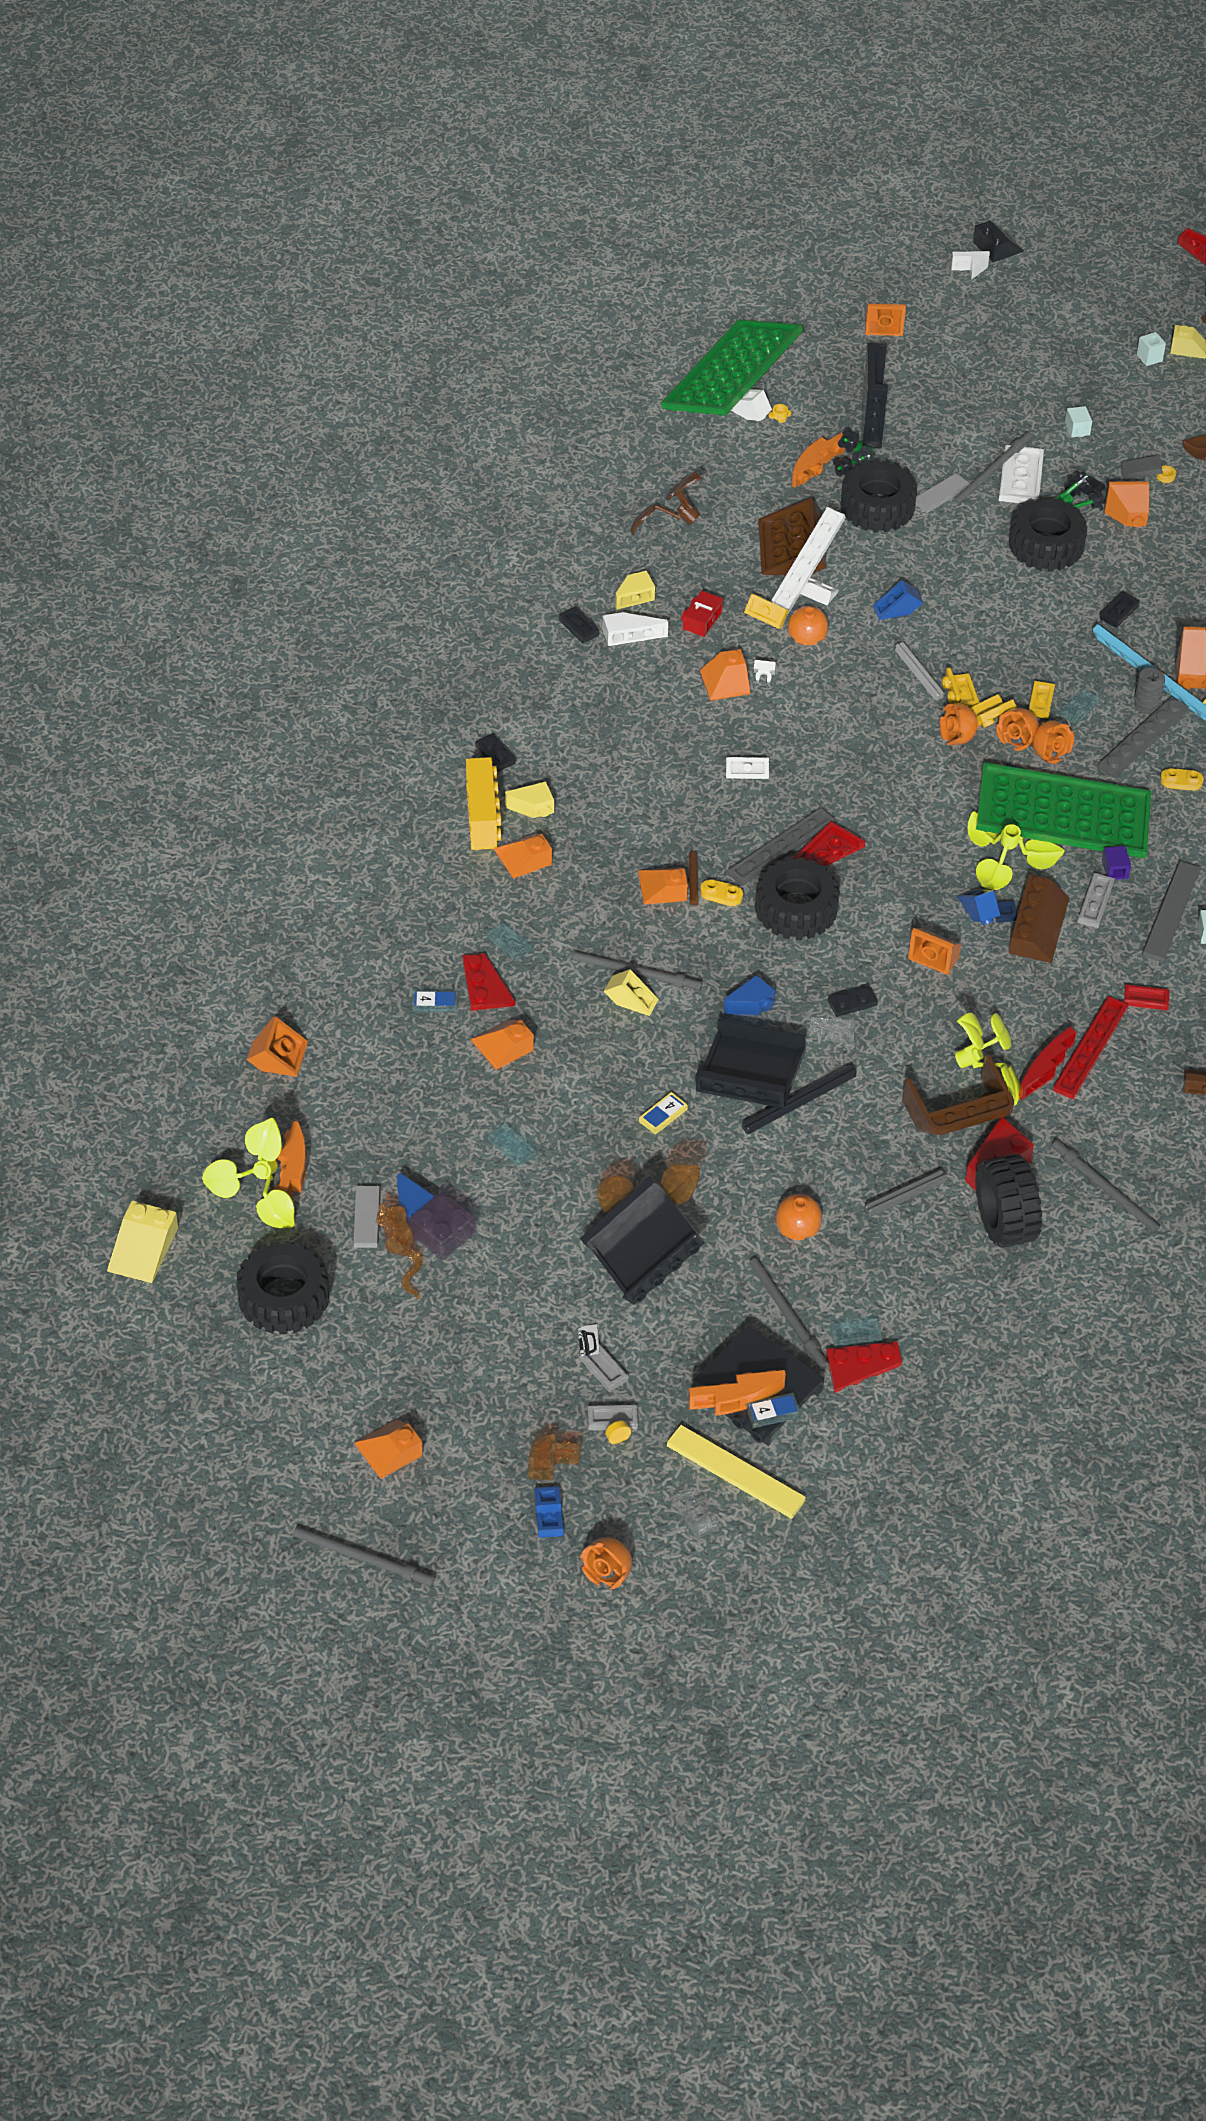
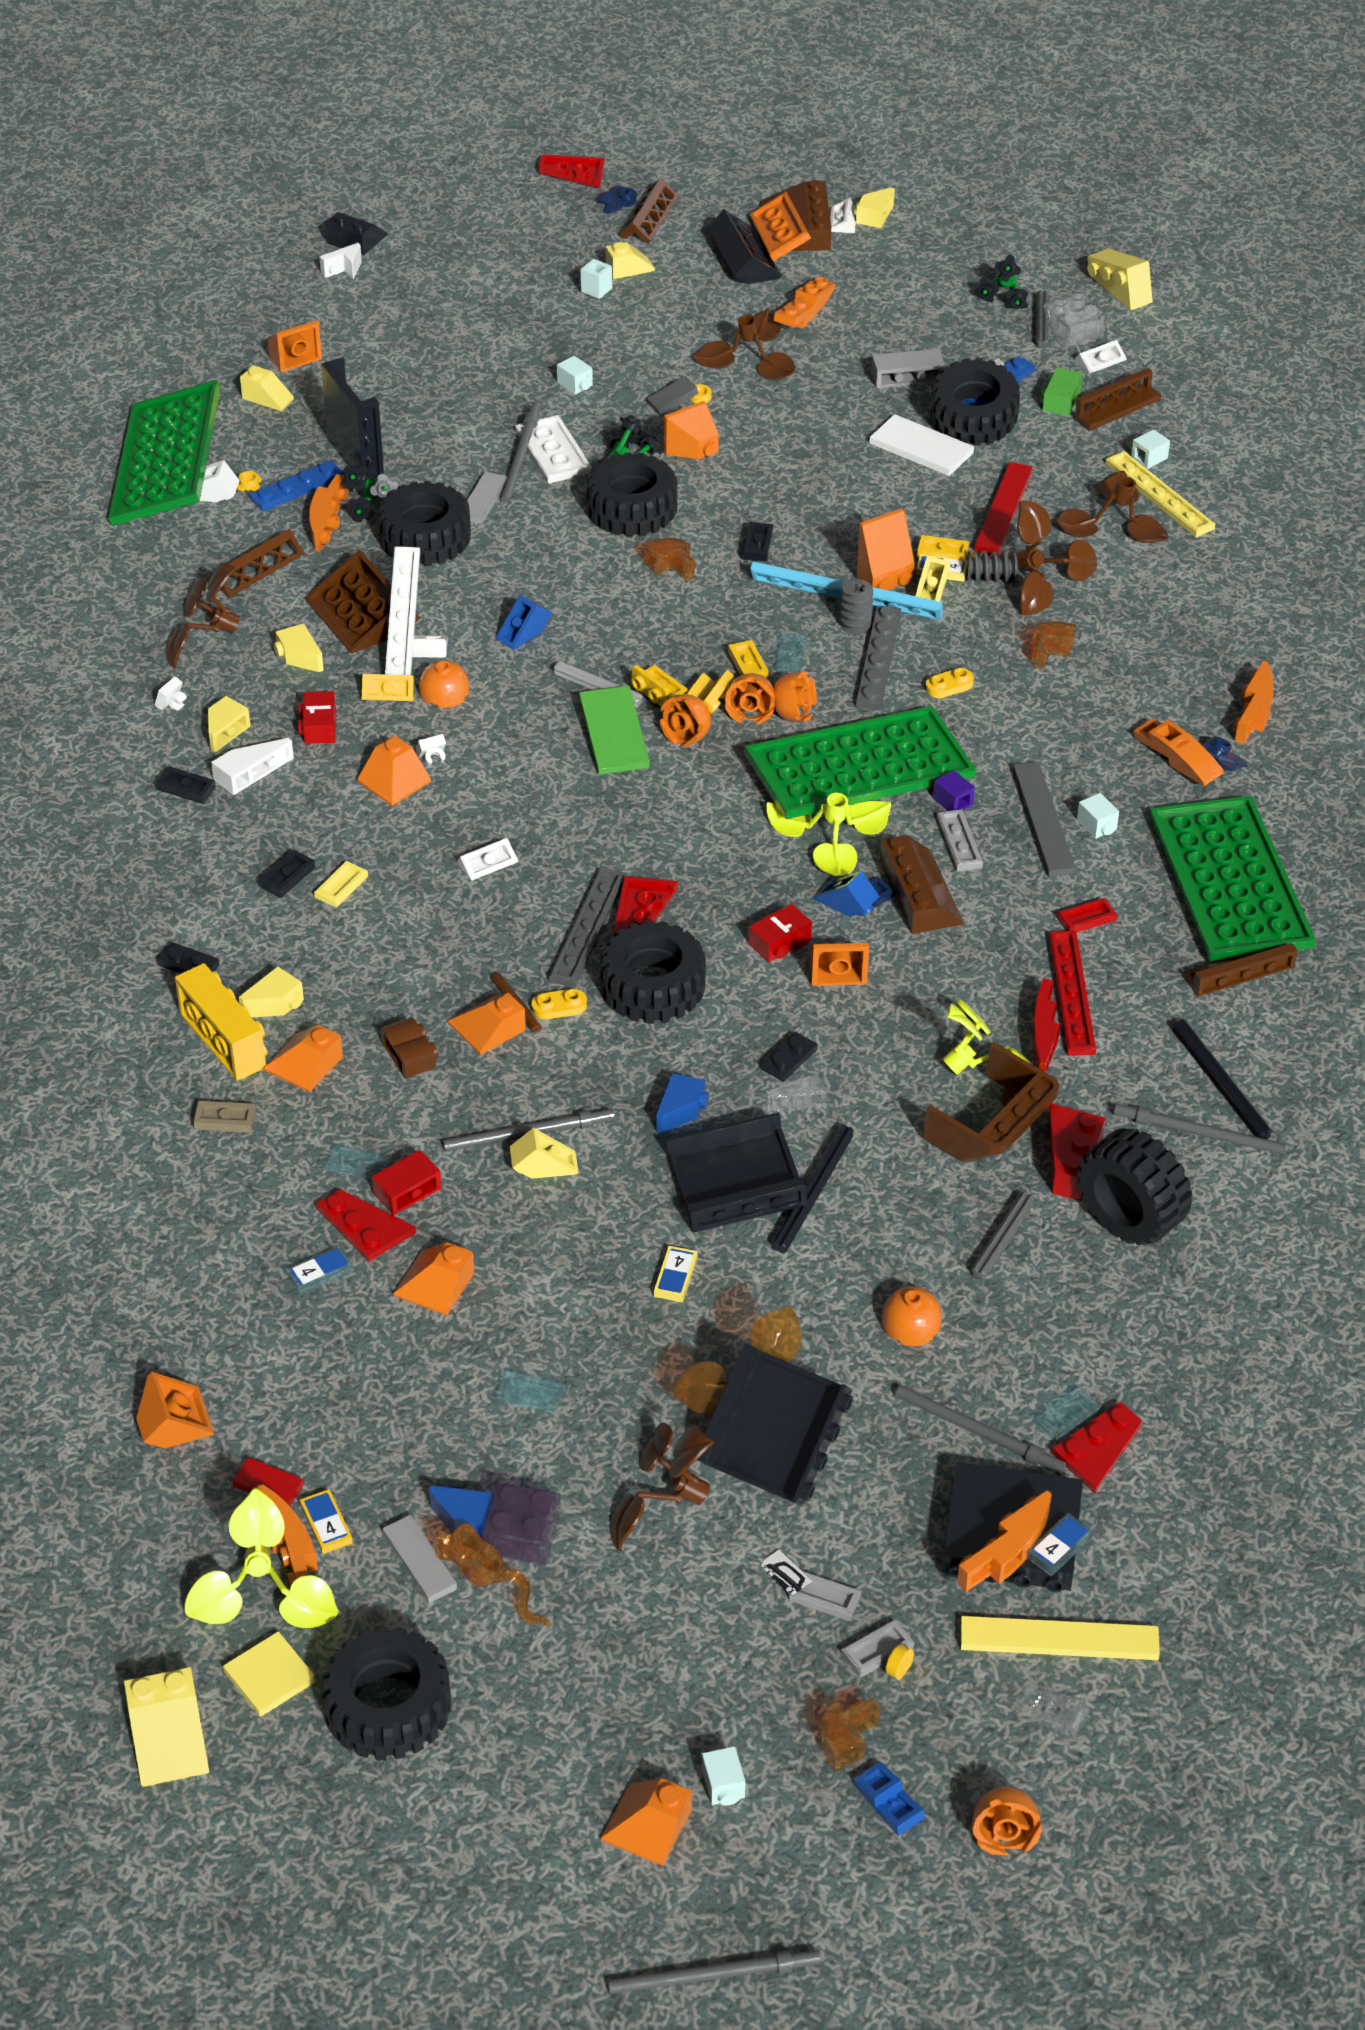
camera: 30 degrees left, 5 degrees down
(226, 1241) = (269, 1674): none -> light yellow tile
(310, 1124) = (256, 1473): none -> red tile
(325, 1164) = (326, 1521): none -> tile
(444, 870) = (225, 1116): none -> dark tan plate
(453, 1444) = (723, 1776): none -> light aqua brick
(529, 968) = (406, 1182): none -> red brick
(562, 1252) = (685, 1485): none -> reddish brown plant
(596, 877) = (409, 1047): none -> reddish brown brick
(602, 718) = (287, 873): none -> black plate
(612, 554) = (171, 695): none -> white tile
(635, 741) = (341, 884): none -> light yellow tile
(724, 555) = (298, 648): none -> light yellow slope
(741, 472) = (258, 554): none -> reddish brown fence
(810, 429) = (295, 486): none -> blue plate
(840, 344) = (264, 388): none -> light yellow slope
(904, 710) = (614, 730): none -> bright green tile
(910, 910) = (780, 933): none -> red brick
(1042, 592) = (670, 554): none -> clear orange brick
(1150, 1159) = (1222, 1079): none -> black axle

